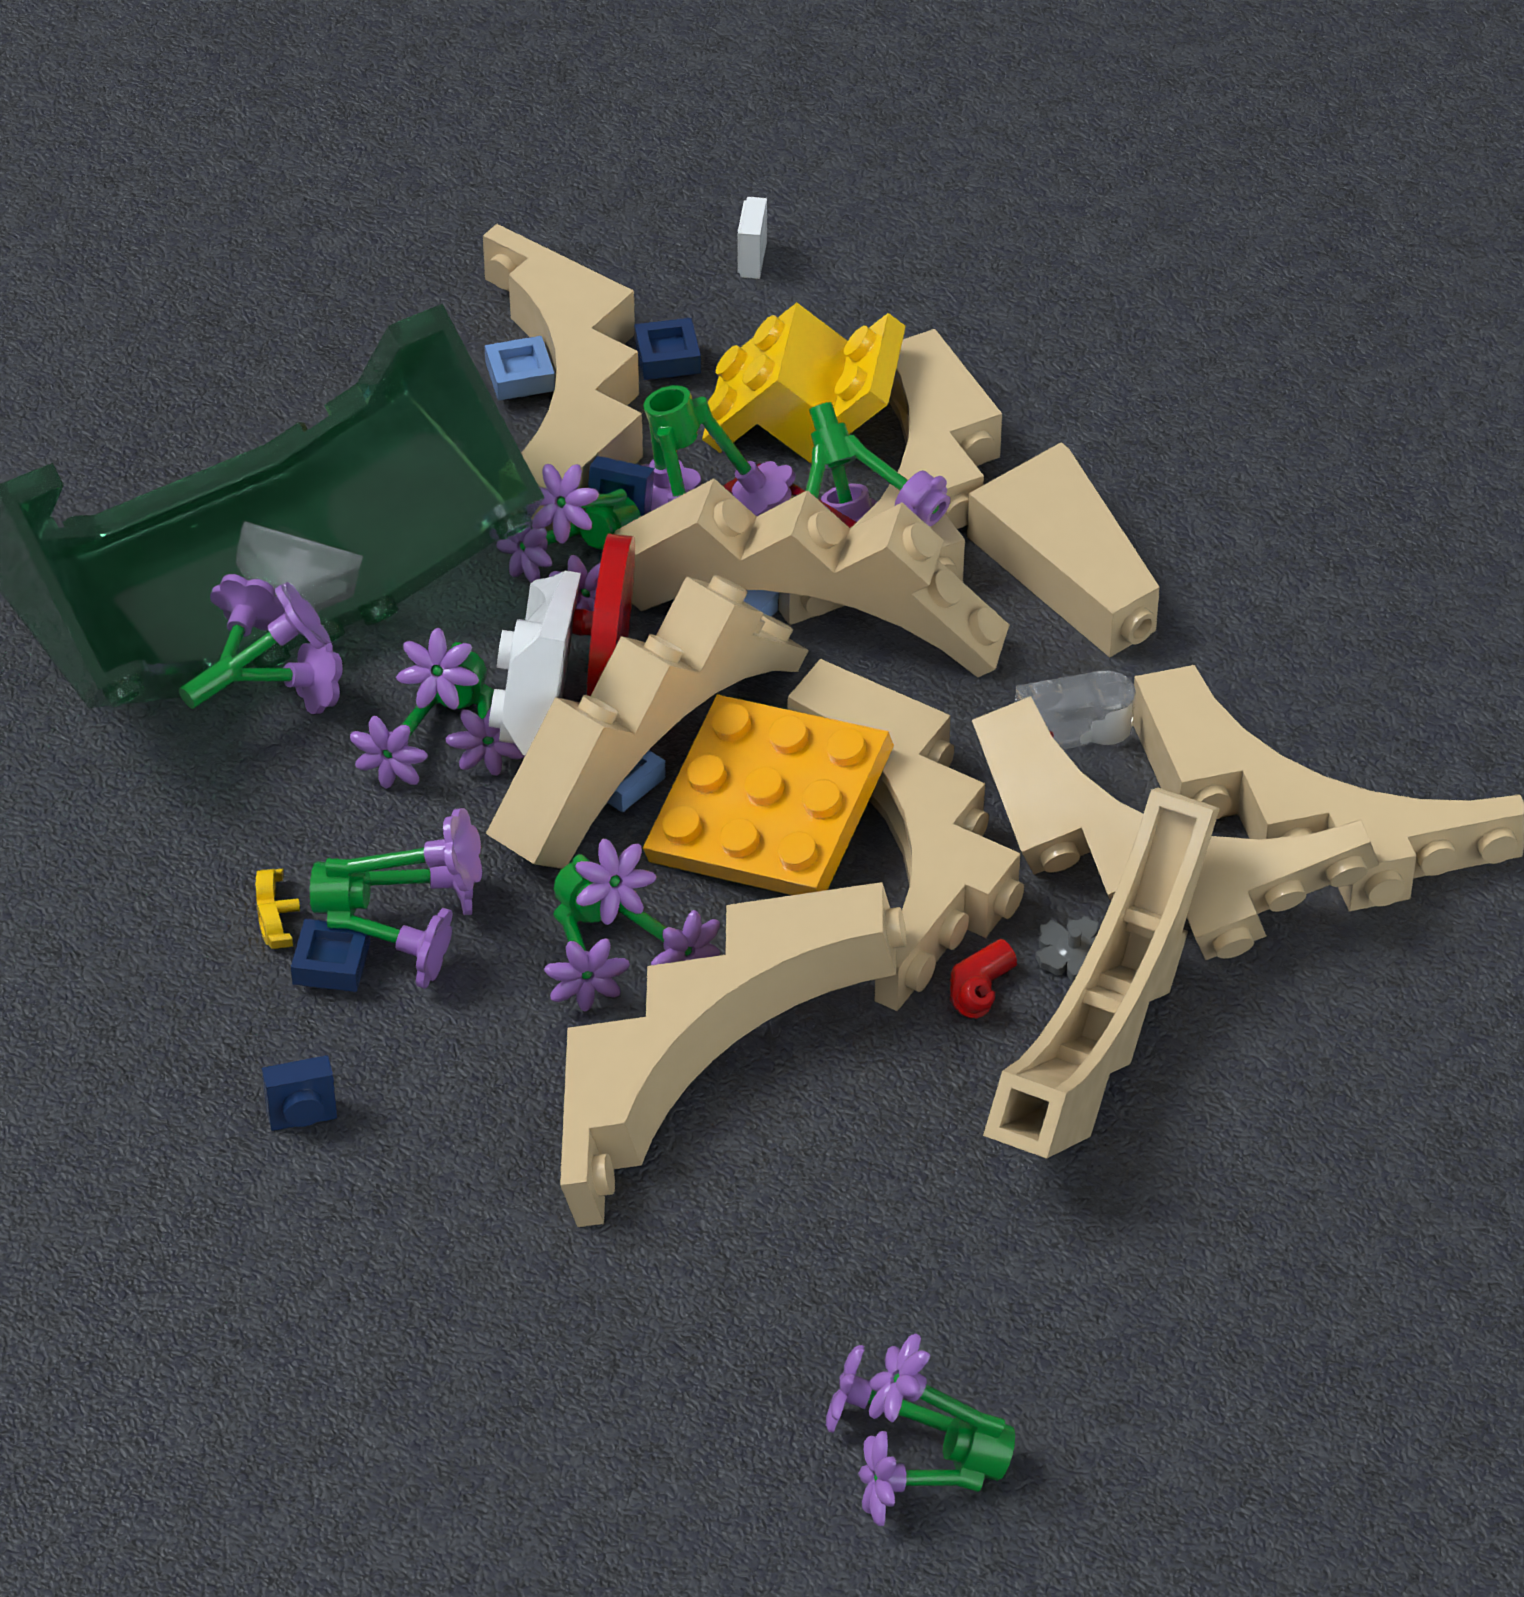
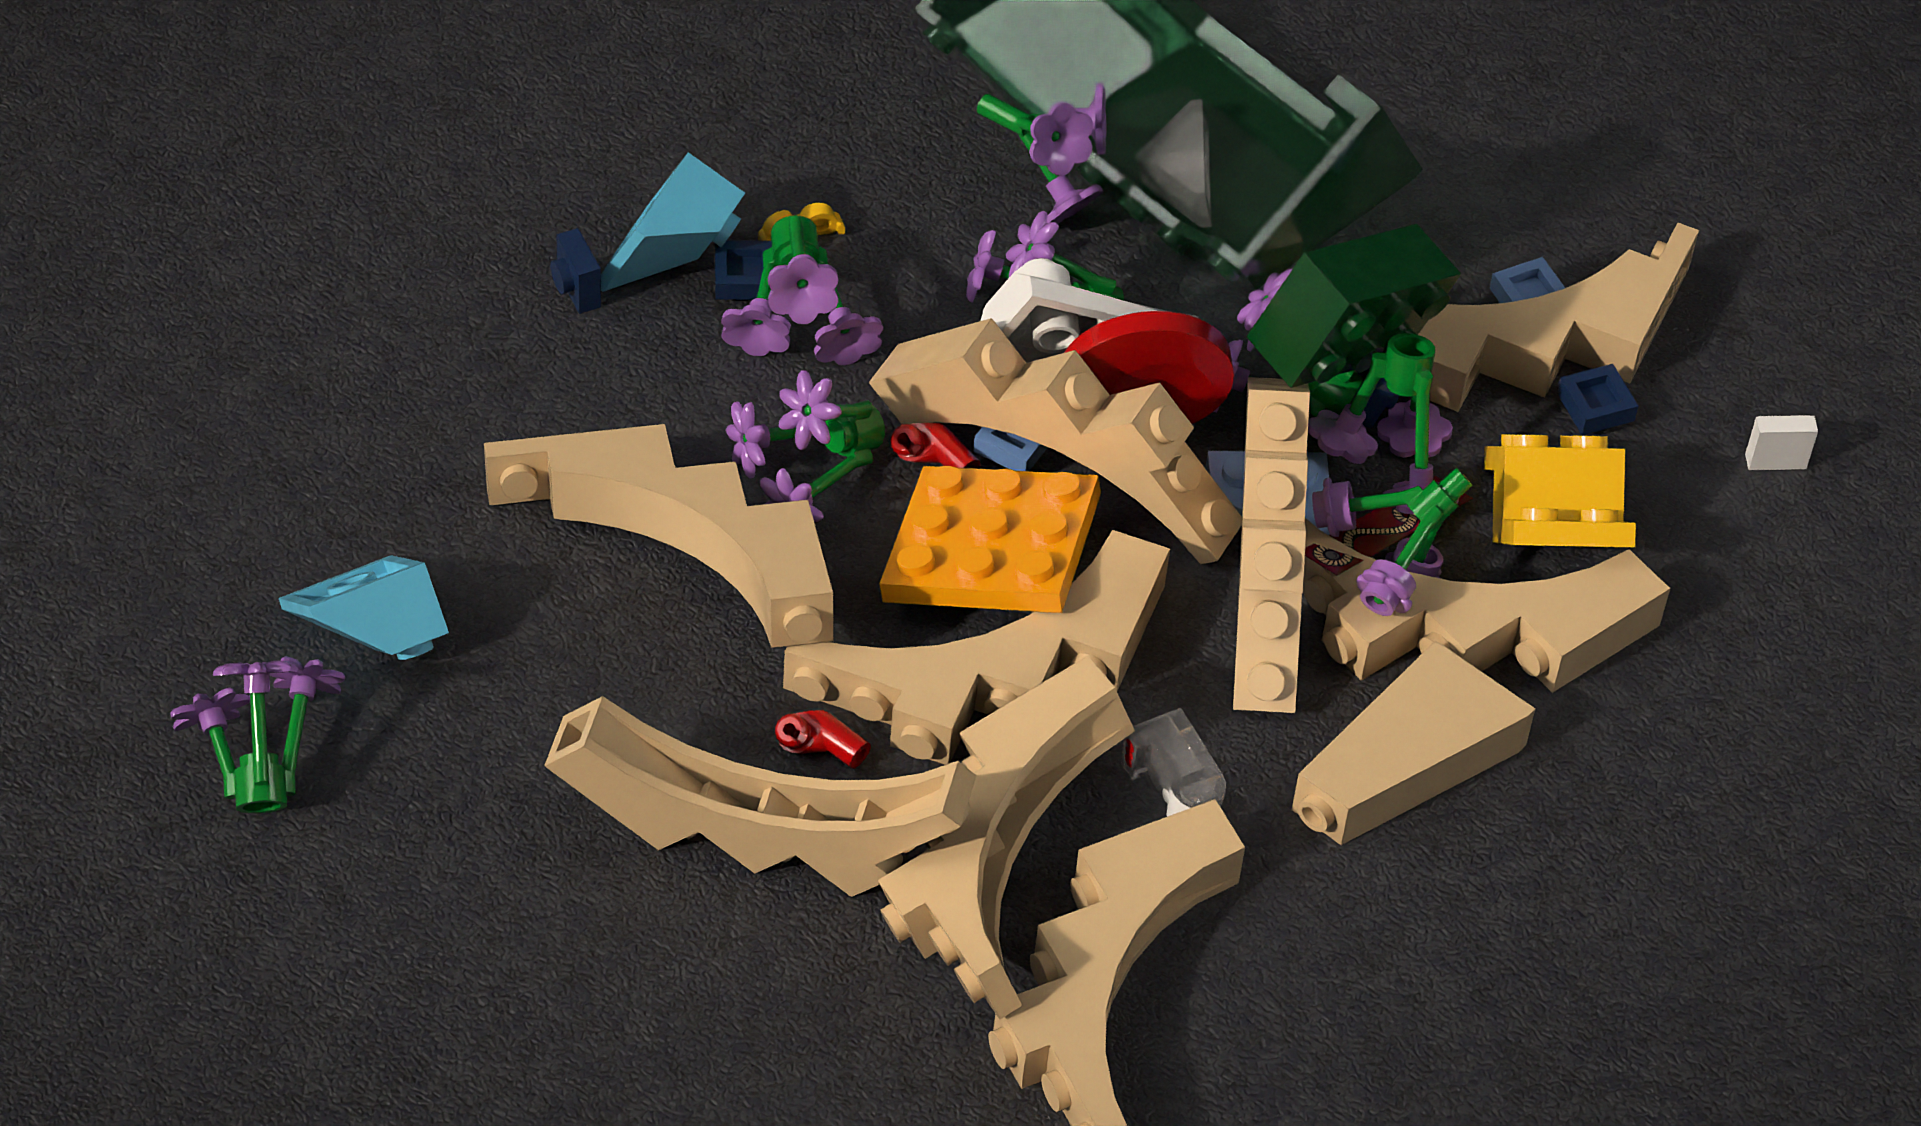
camera: 75 degrees right, 5 degrees up
(268, 990) = (676, 224): none -> medium azure slope
(613, 423) = (1350, 302): none -> dark green brick
(620, 830) = (931, 445): none -> red arm
(744, 1321) = (377, 605): none -> medium azure slope

